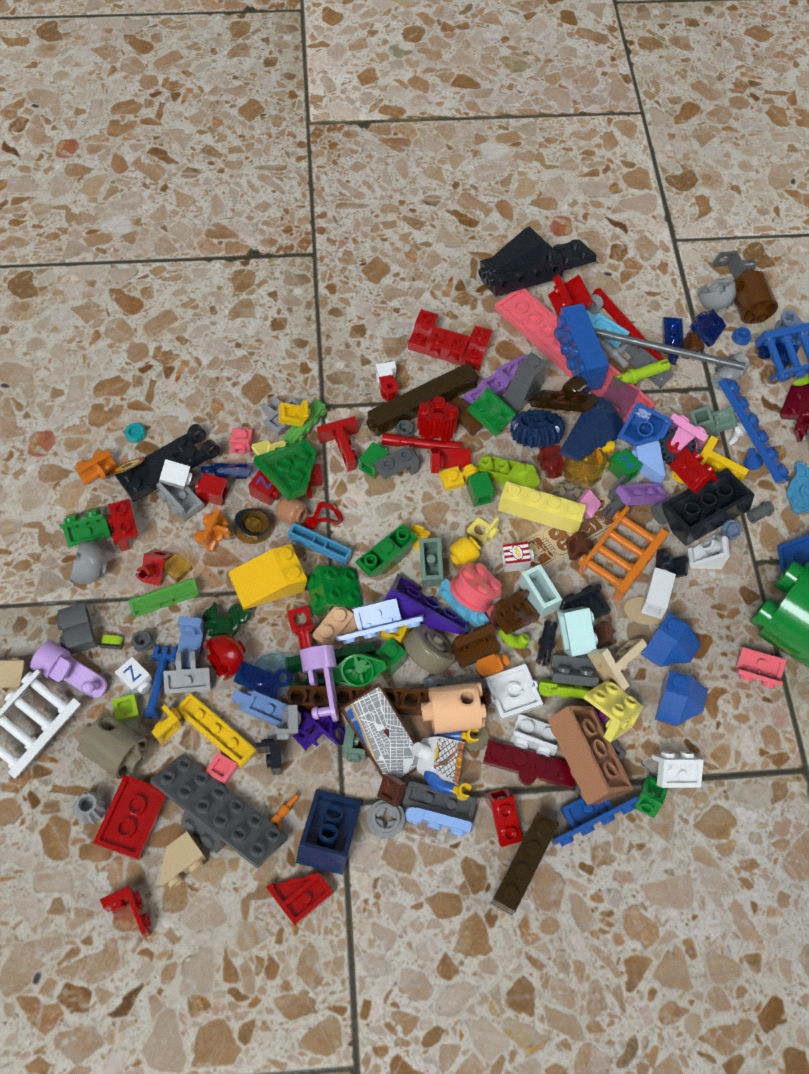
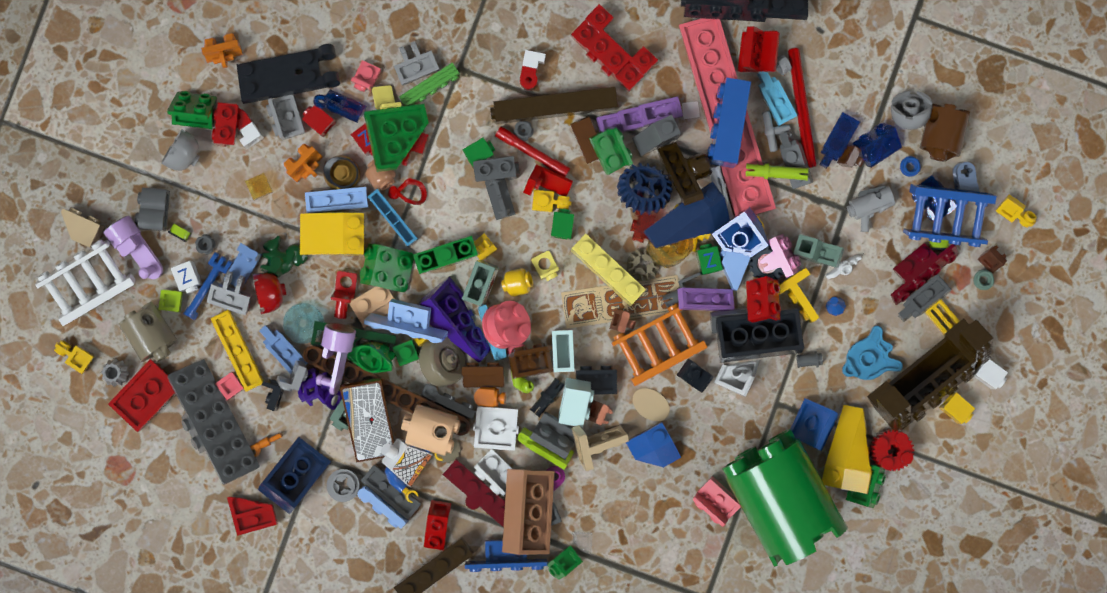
camera: 25 degrees right, 25 degrees up
(42, 810) = (78, 358): none -> yellow plate
(117, 901) = (112, 458): red bracket -> none
(127, 465) = (250, 63): sticker -> none
(135, 433) = (271, 25): teal tile -> none
(148, 523) = (248, 130): none -> white leg
(153, 566) = (238, 177): red bracket -> none
(163, 597) = (237, 210): bright green piece -> none
(167, 728) = (196, 333): yellow bracket -> none
(175, 474) = (287, 98): white brick -> none
(180, 859) = (169, 446): tan slope -> none
(256, 547) = (336, 200): none -> light blue plate
(261, 679) = (289, 328): clear blue hinge -> none
(293, 414) = (422, 75): yellow bracket -> none
(341, 432) = (459, 118): red bracket -> none
(392, 790) = (356, 467): copper tile -> none
(410, 490) = (500, 198): none -> dark grey hinge
(437, 419) = (555, 138): red brick -> none
(505, 470) = (596, 220): lime slope -> none
(516, 556) = (561, 308): white brick -> none
(591, 502) = (653, 283): bright pink tile -> none
(617, 705) = (568, 482): light yellow bracket -> none
(620, 395) = (742, 189): clear purple piece -> none
(658, 593) = (666, 397): white brick -> none
(670, 349) = (820, 155): dark grey piece -> none
(678, 770) = (595, 553): white bracket -> none
(680, 699) = (633, 497): blue slope -> none
(731, 529) = (770, 365): sand blue plate -> none
(734, 263) = (957, 81): dark grey bracket -> none
(758, 436) = (851, 278): blue plate -> none

